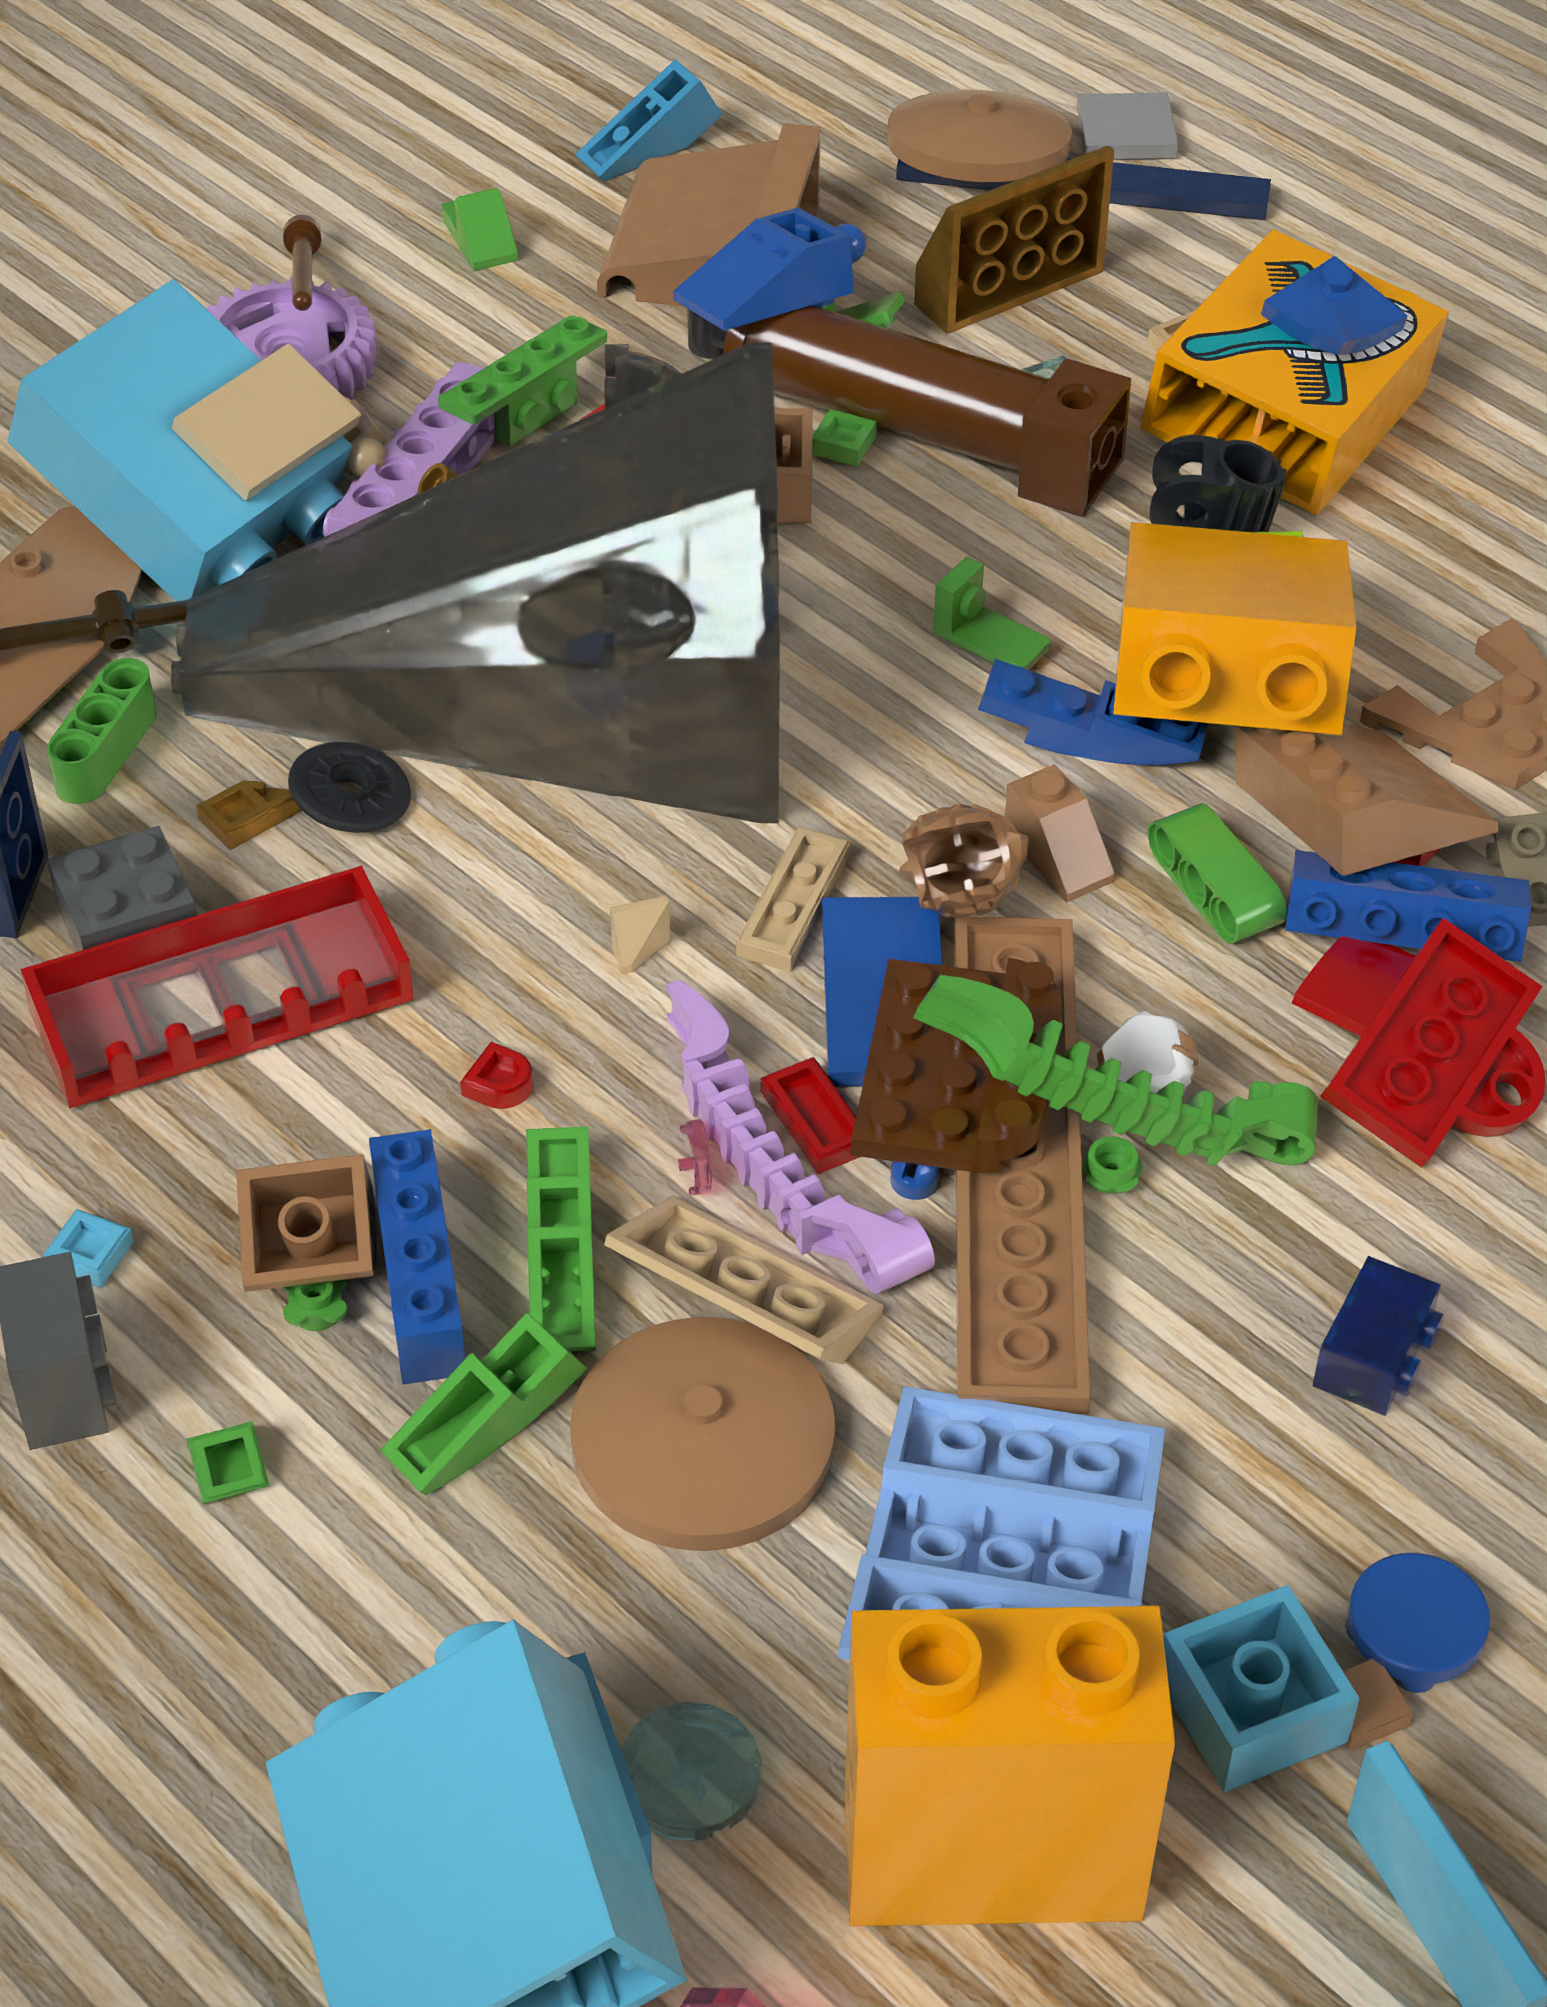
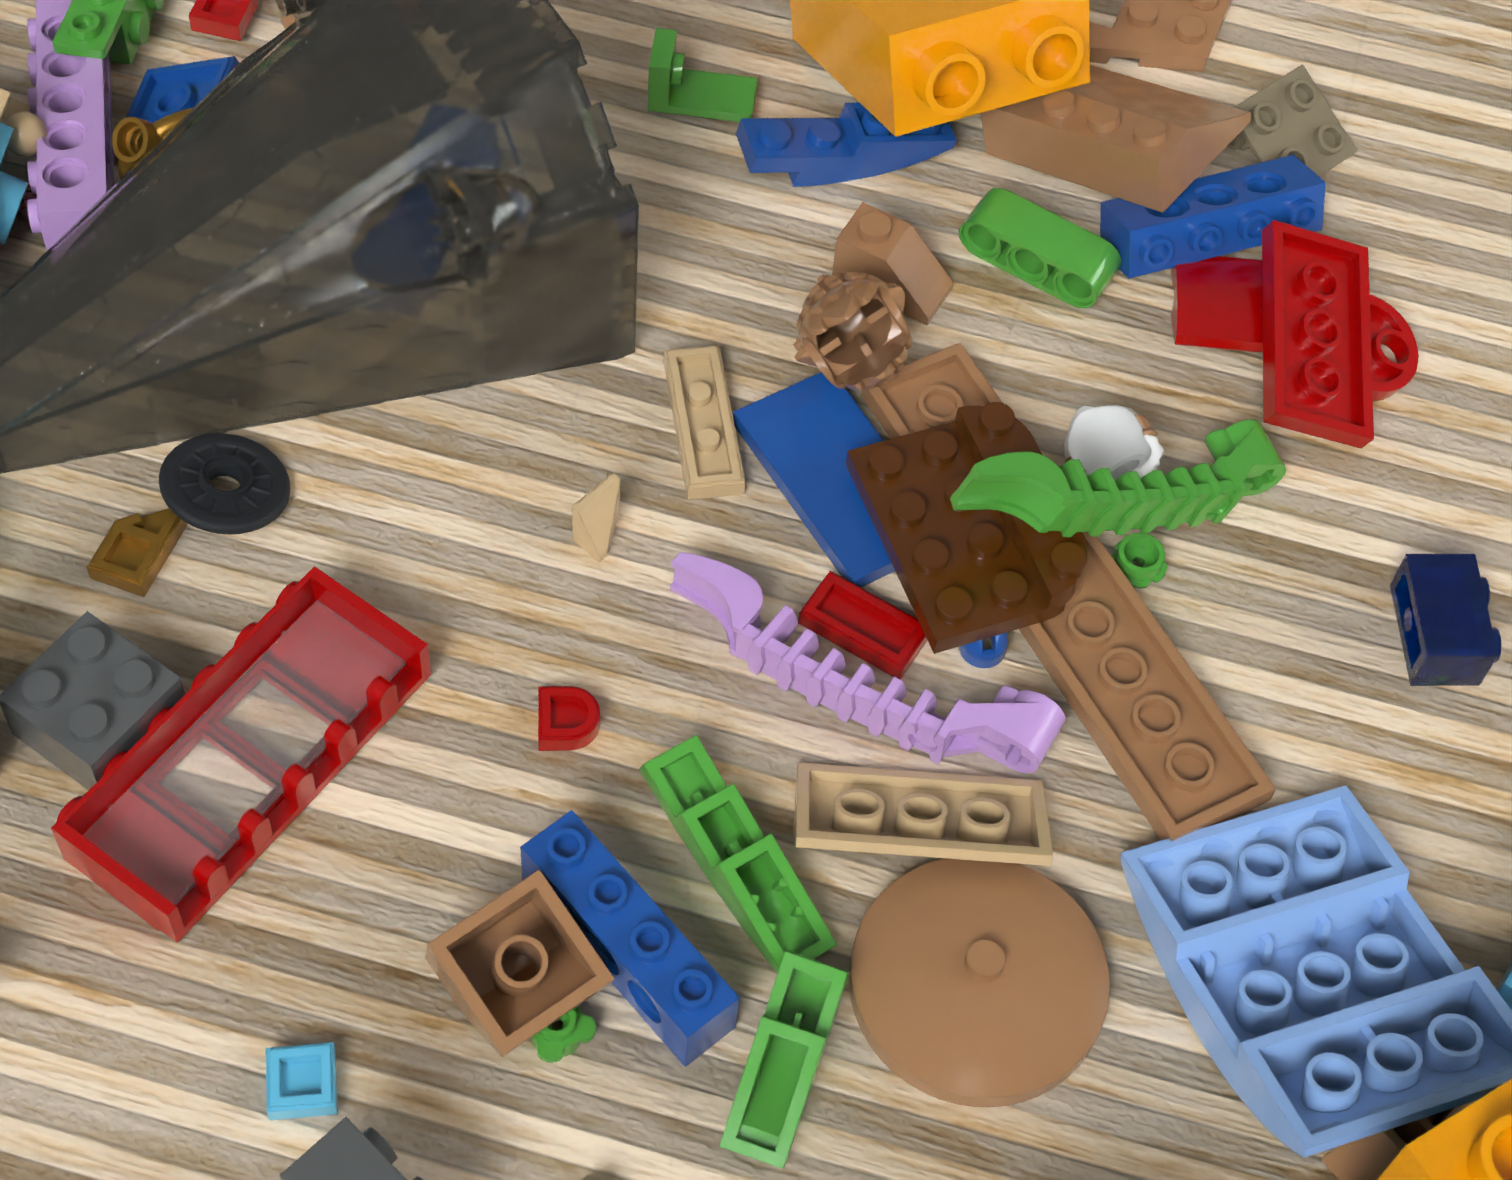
camera: 35 degrees left, 10 degrees up
(701, 1161) = (788, 701): clear pink piece -> none

